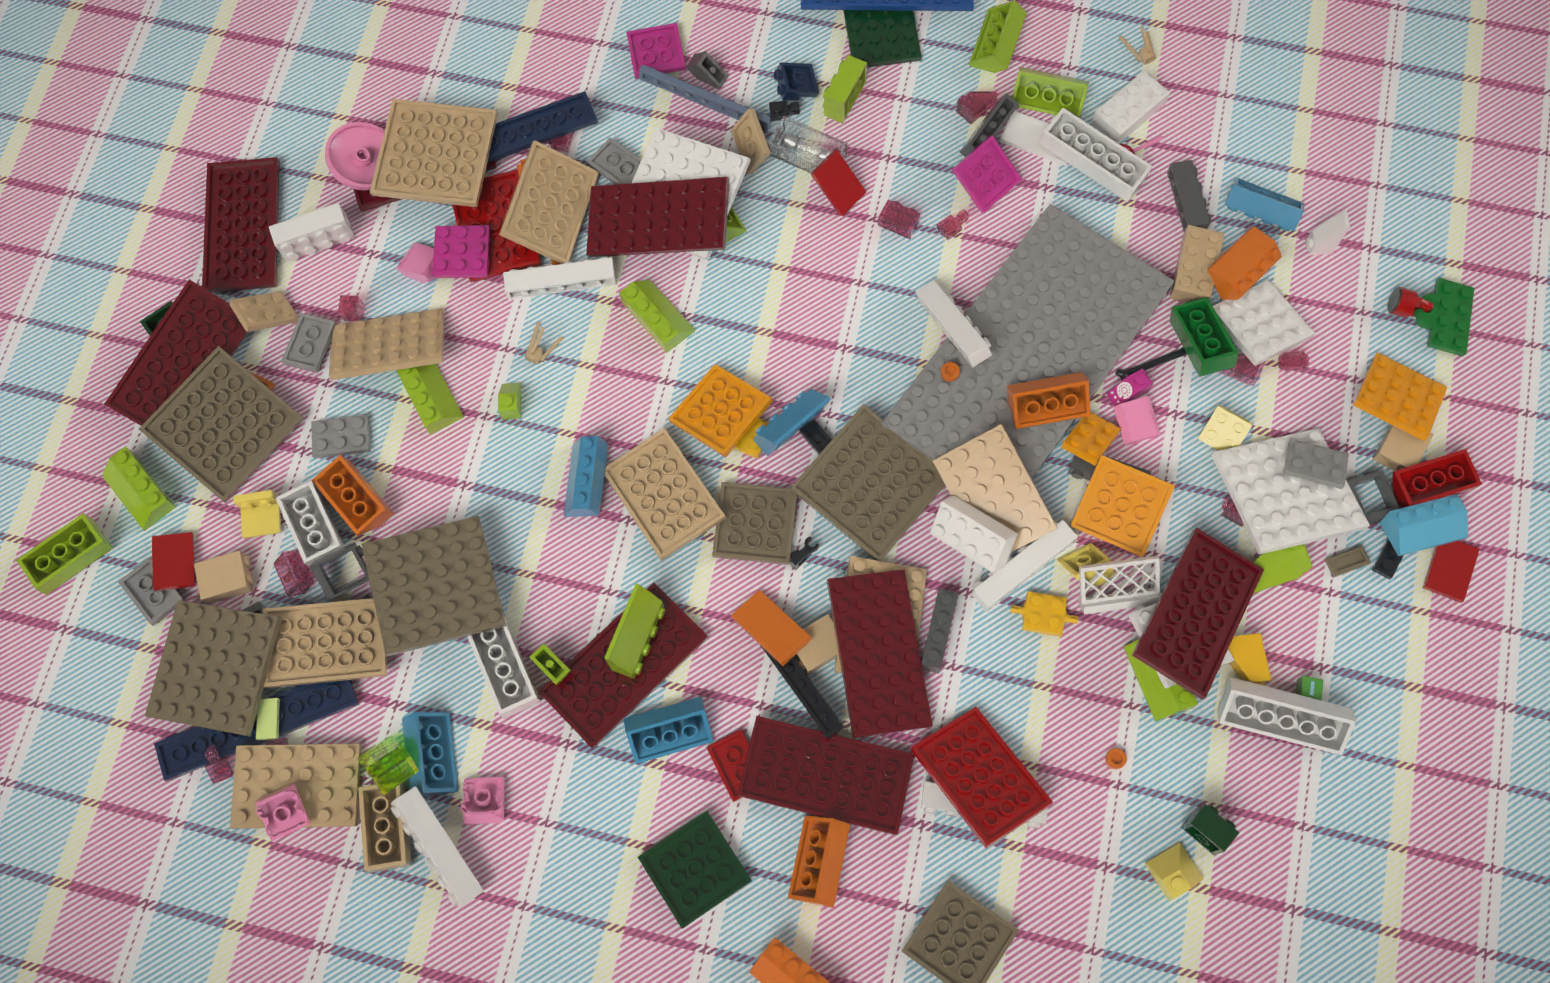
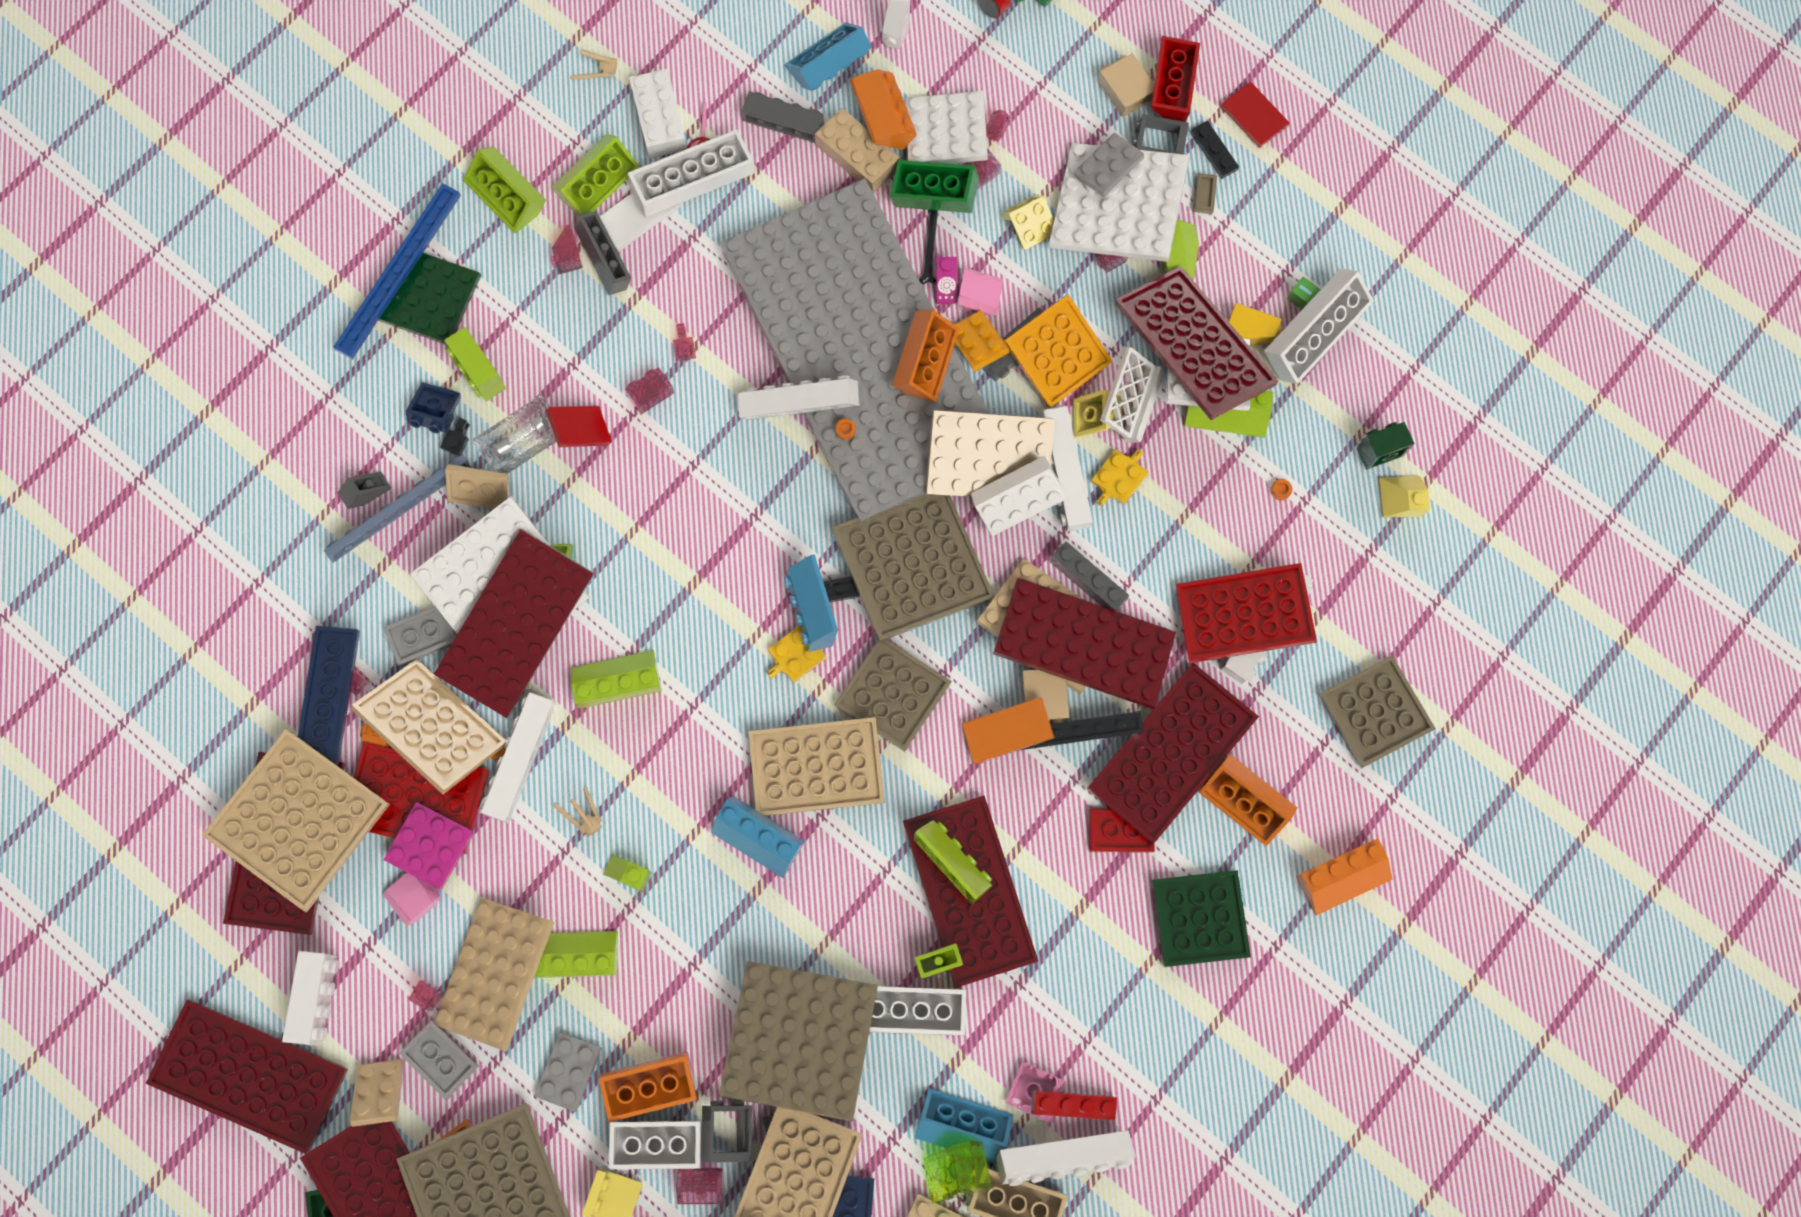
camera: 70 degrees left, 5 degrees up
(353, 154) = (245, 907): bright pink dish -> none
(484, 835) = (1074, 1105): none -> red plate
(656, 48) = (305, 529): dark pink plate -> none
(668, 730) = (1056, 878): dark azure slope -> none
(720, 410) = (759, 667): light orange plate -> none
(801, 556) = (950, 669): black plate -> none
(986, 174) = (652, 282): dark pink plate -> none
(1400, 396) = (1082, 58): light orange plate -> none
(1426, 525) = (1210, 110): medium azure slope -> none

